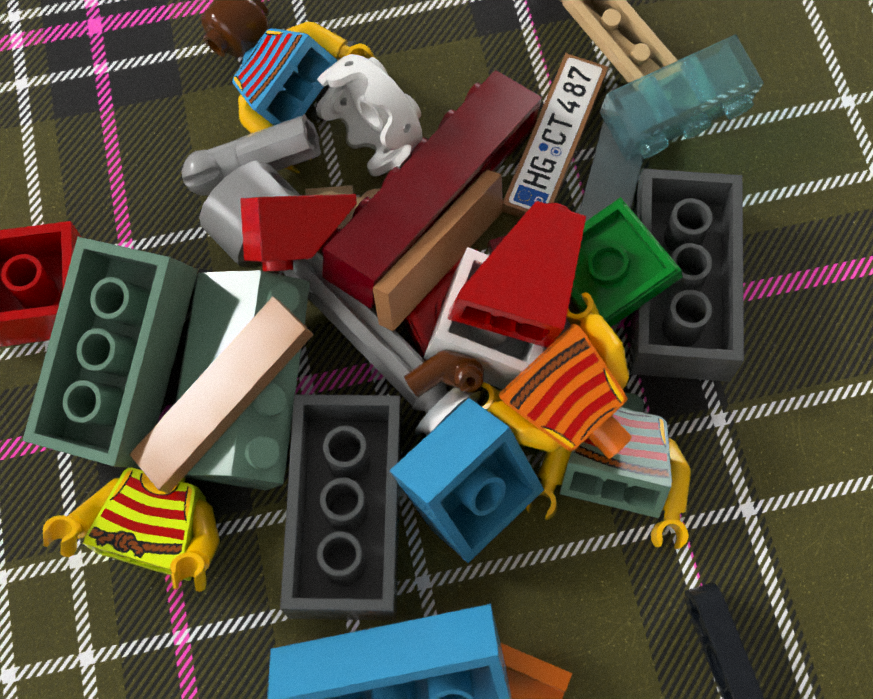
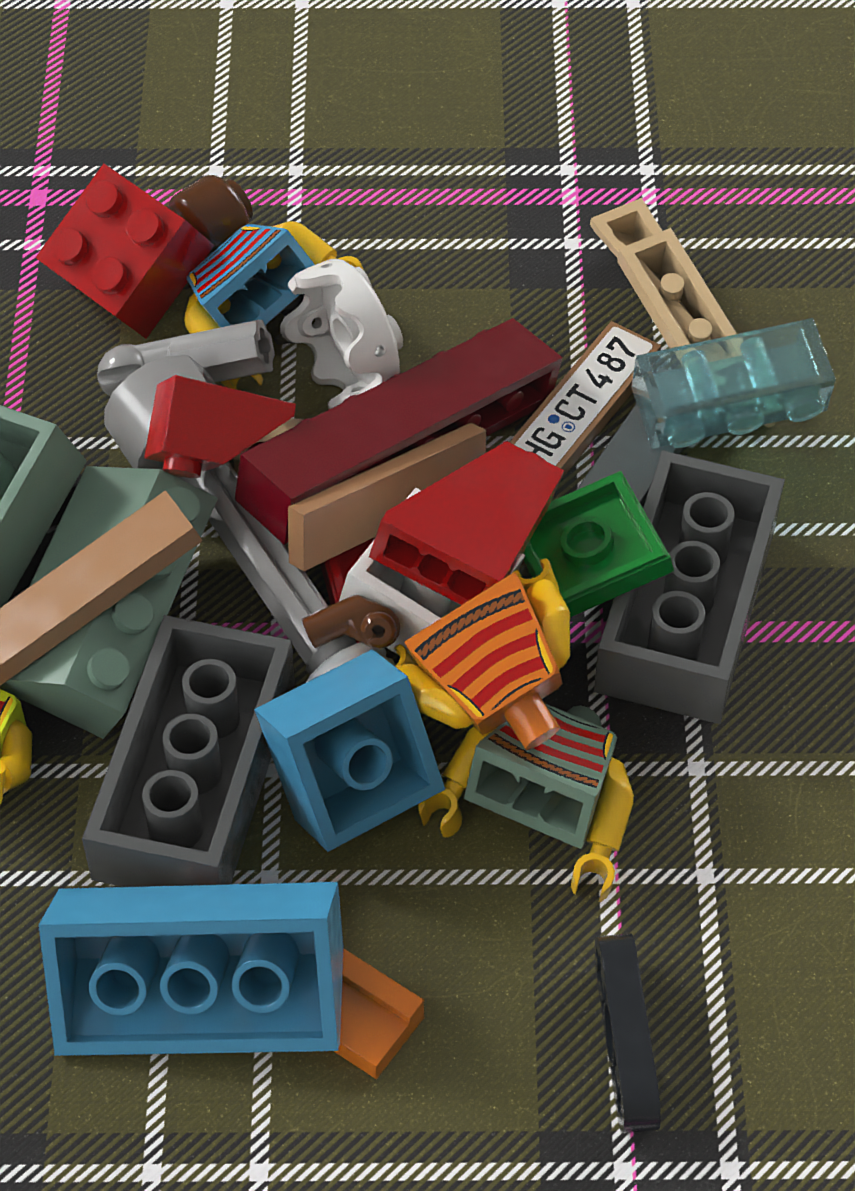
camera: 10 degrees right, 15 degrees down
(177, 69) = (125, 250): none -> red brick

